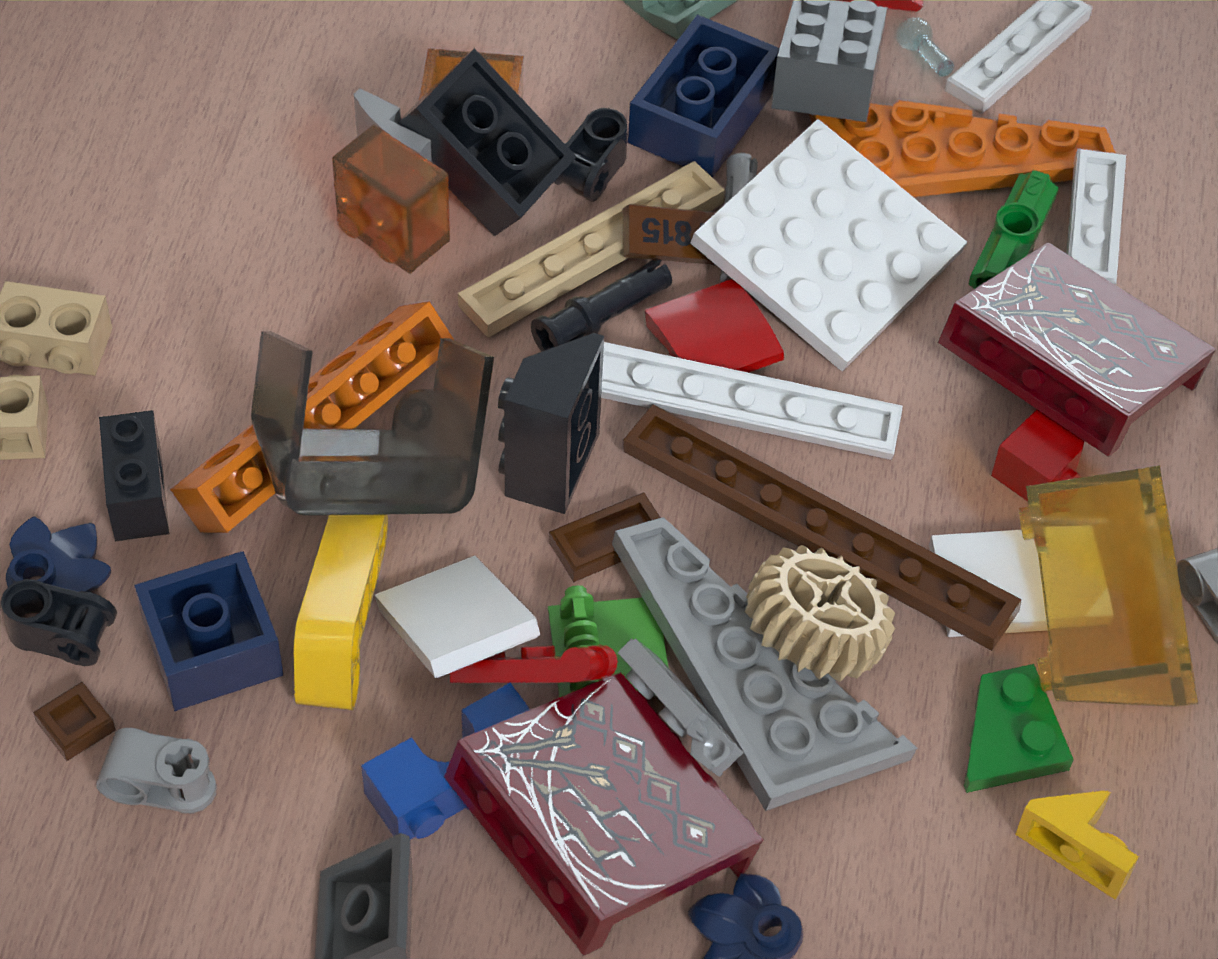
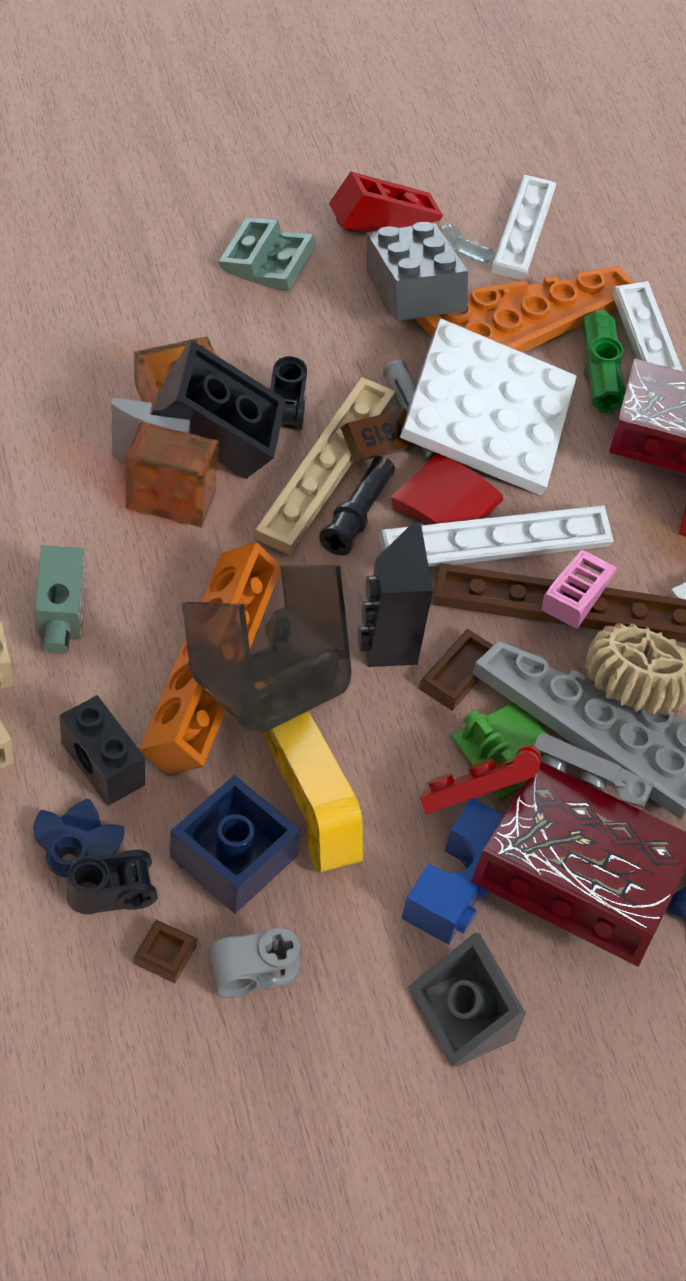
camera: 30 degrees left, 0 degrees up
(188, 292) = (60, 596): none -> sand green torso
(457, 616) = (407, 764): white tile -> none
(703, 95) = (344, 325): dark blue brick -> none
(779, 515) = (566, 608): none -> bright pink slope

